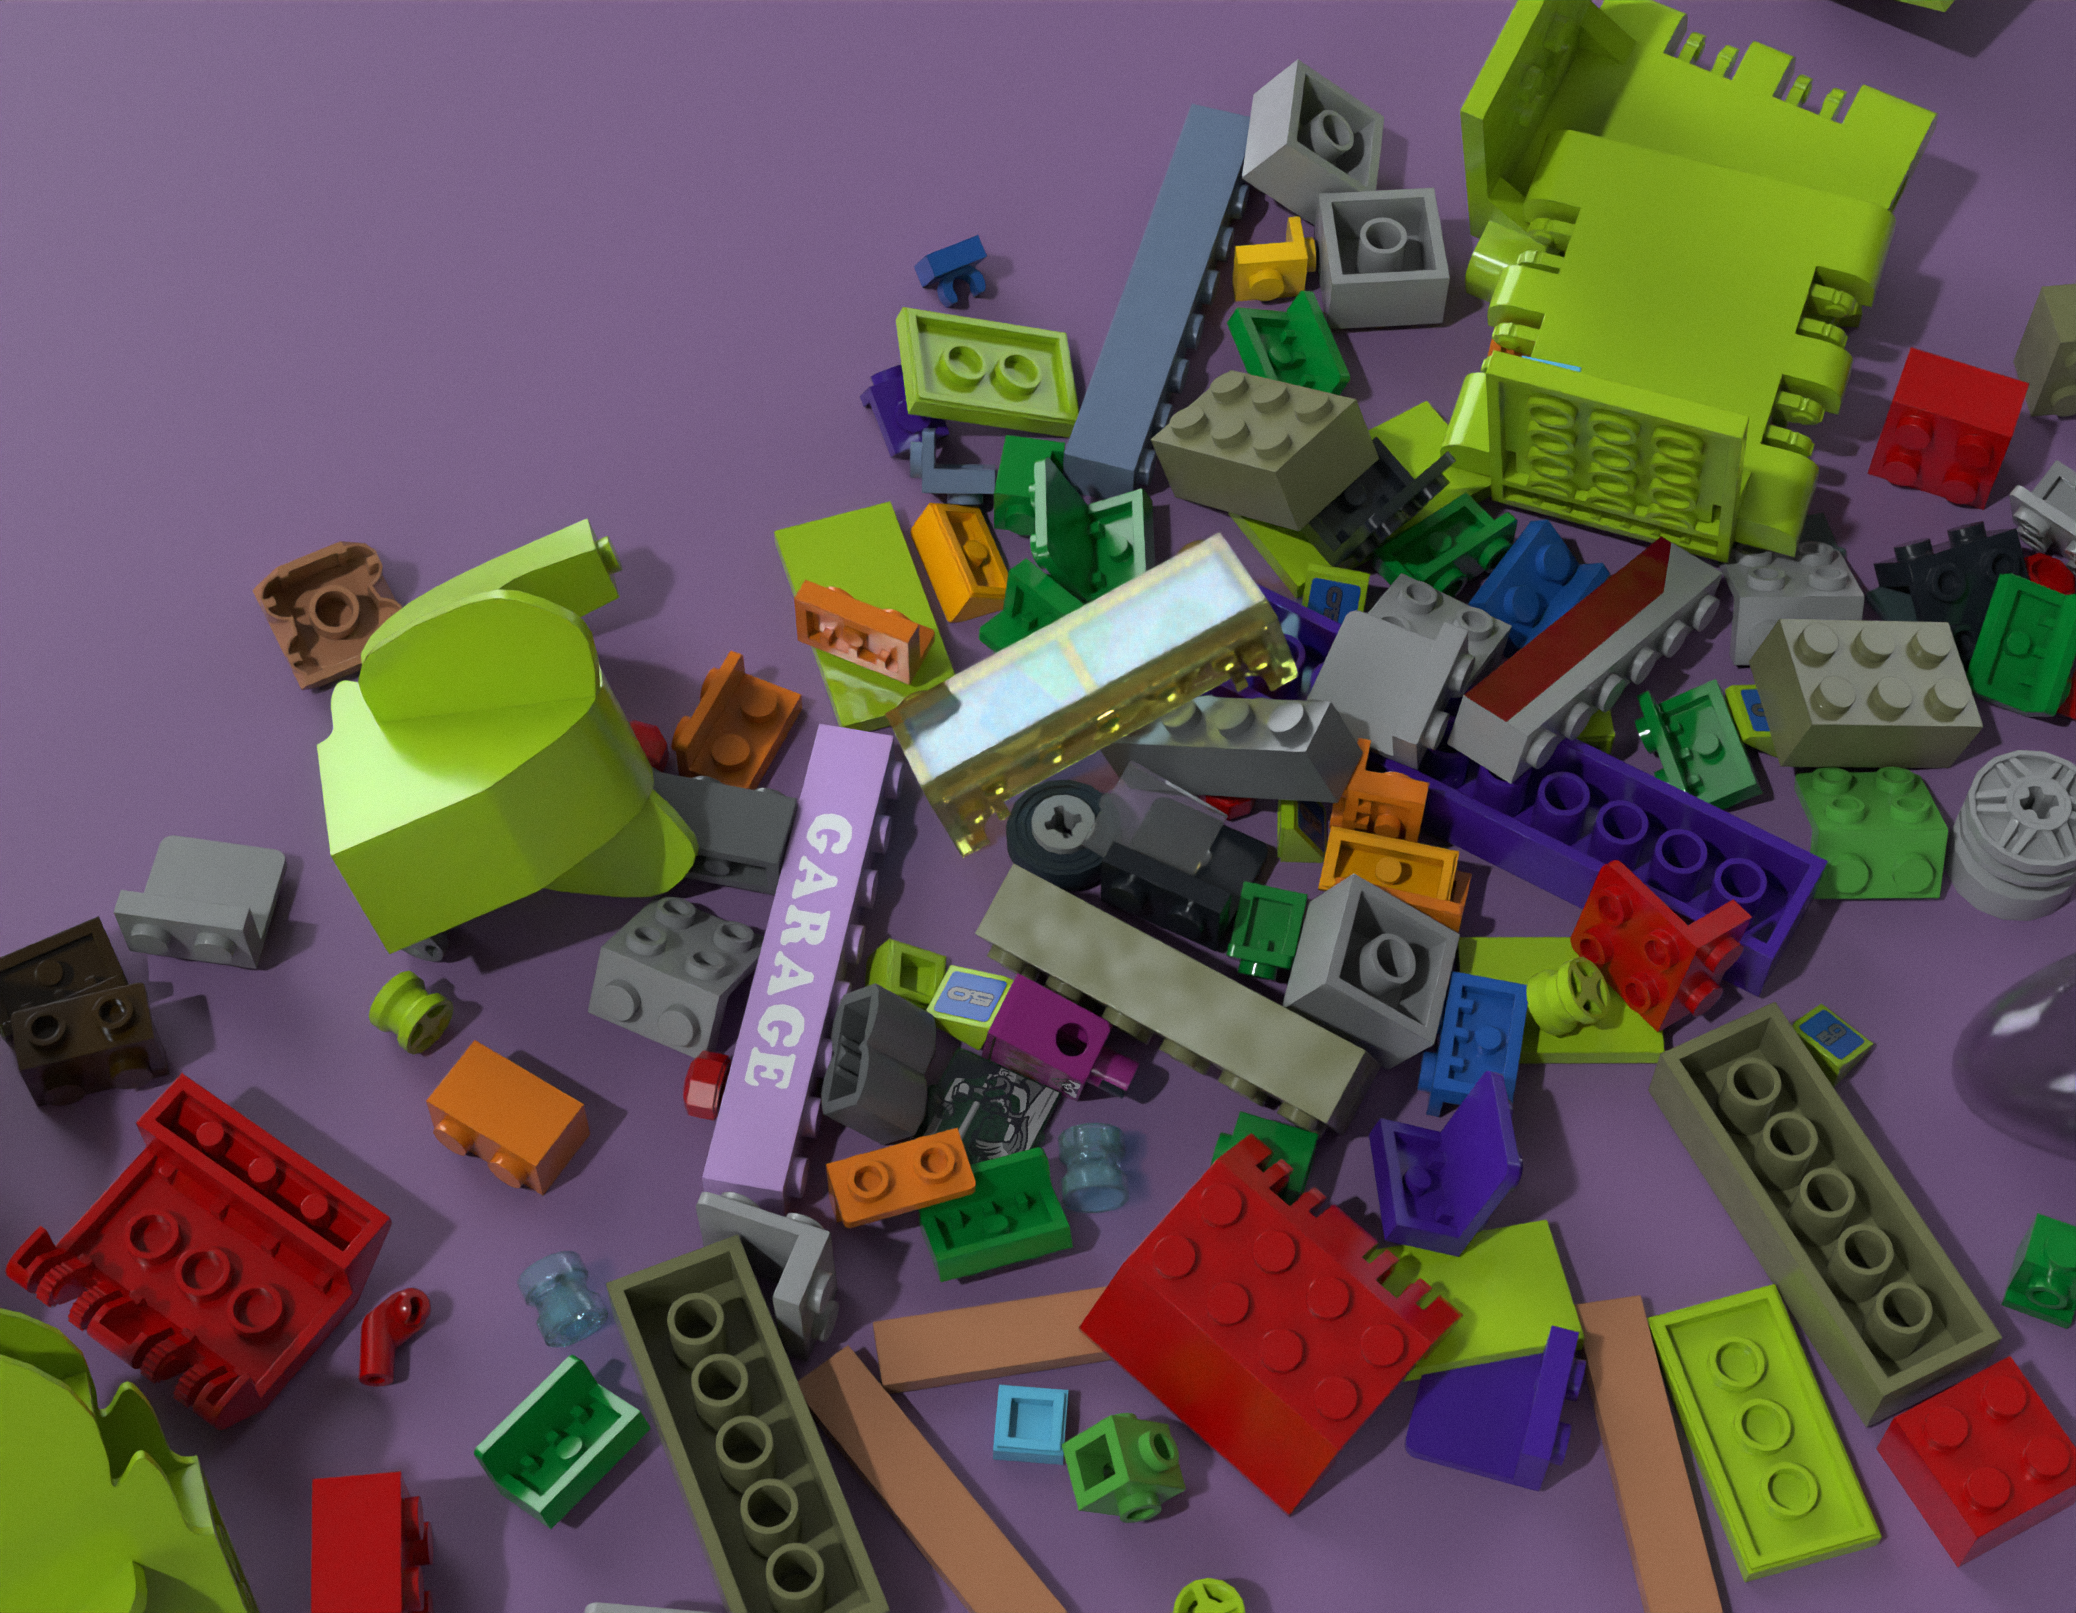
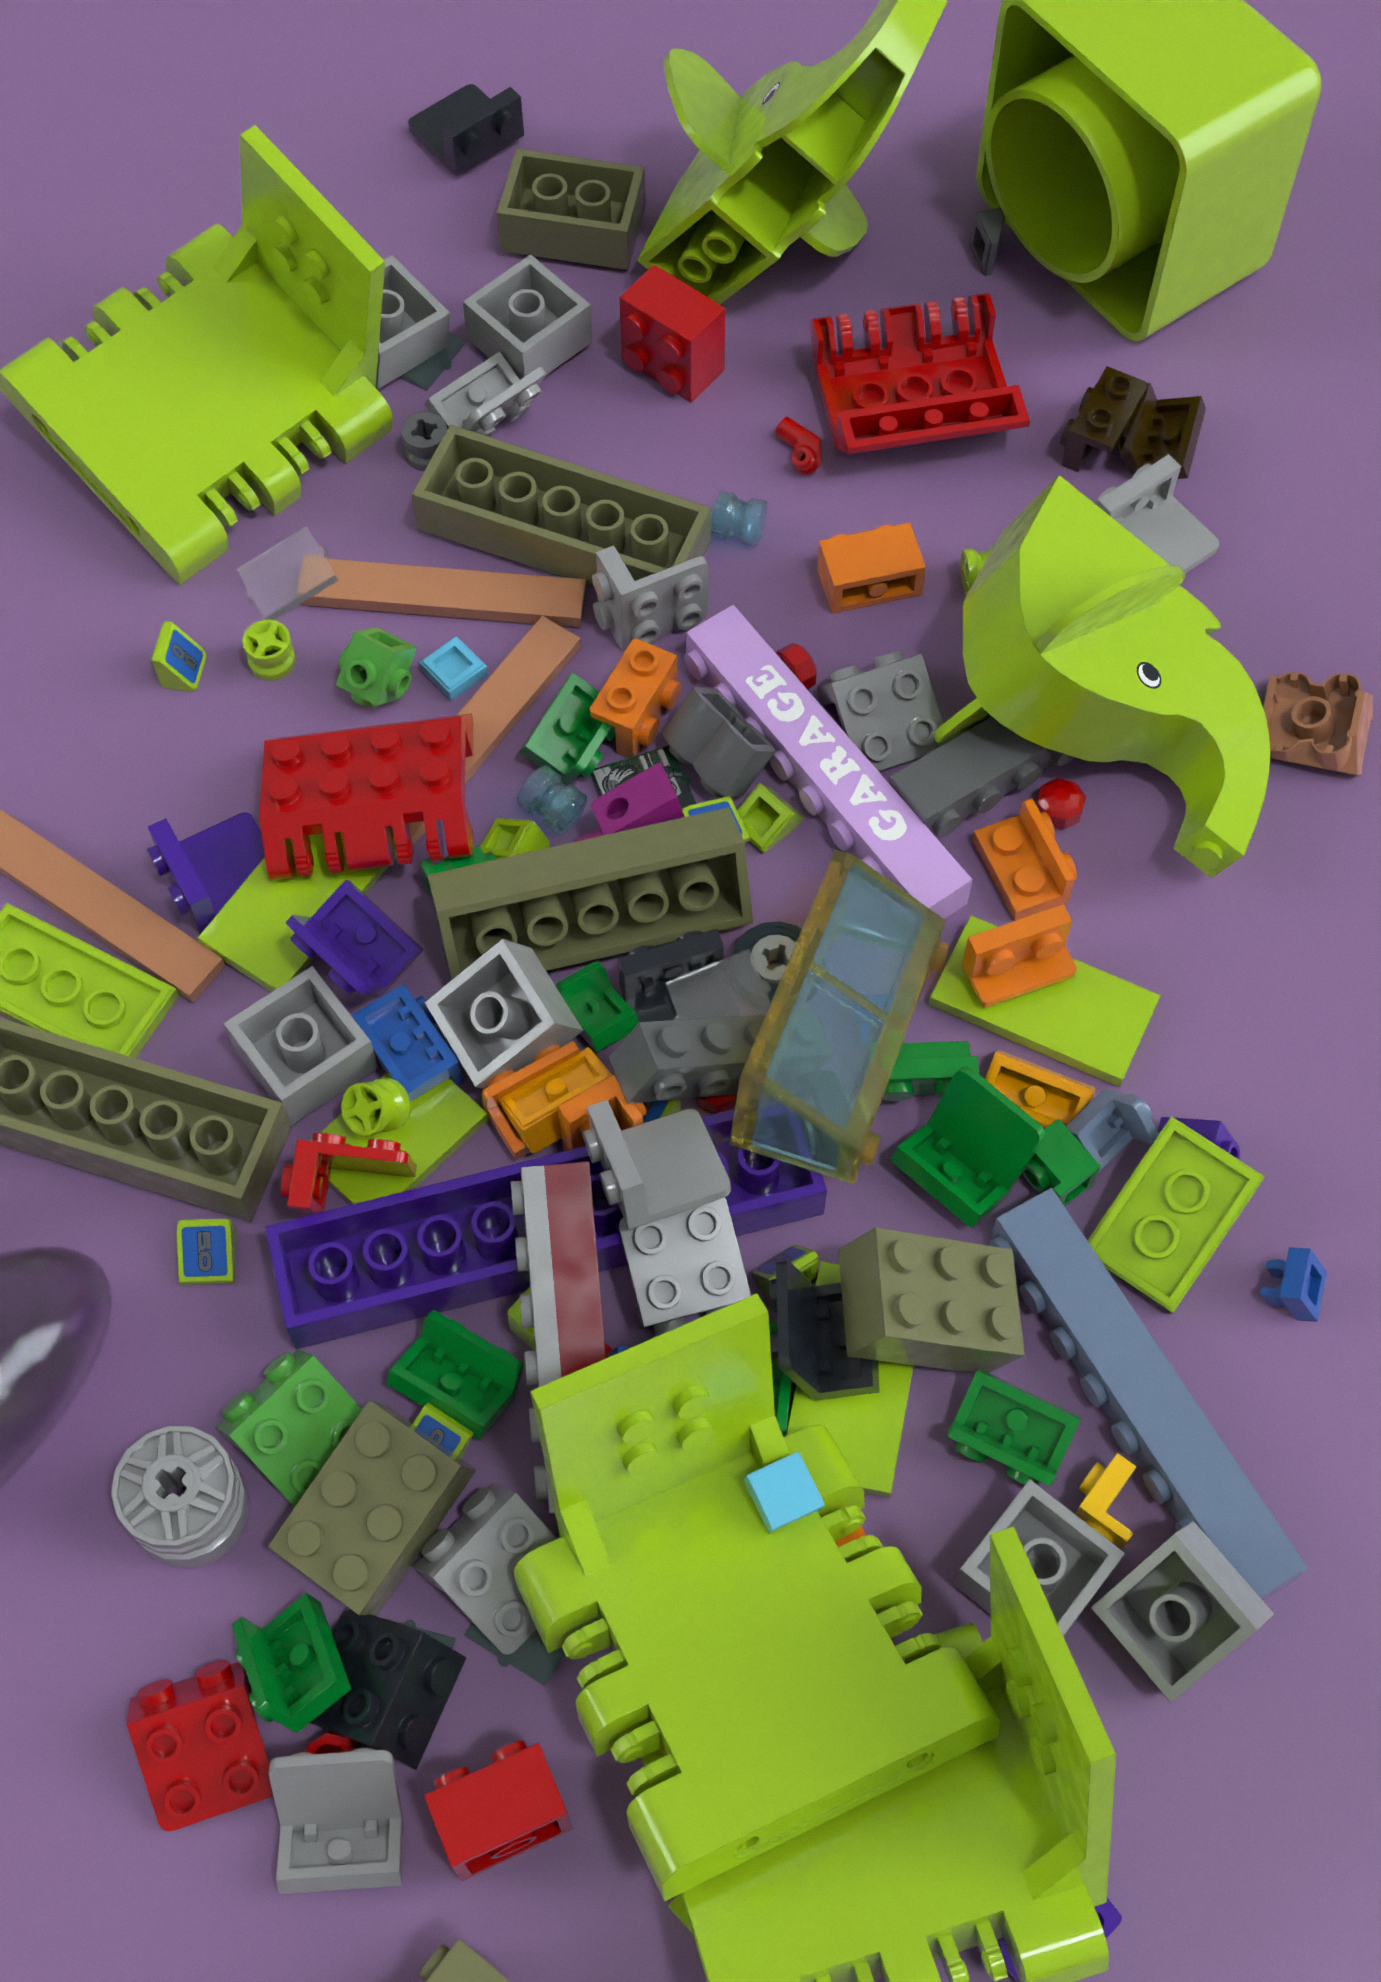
camera: 135 degrees right, 5 degrees up
(559, 1442) = (661, 456): green bracket -> none
(1170, 1170) = (513, 837): none -> lime slope
(1585, 1124) = (302, 1044): none -> light grey brick

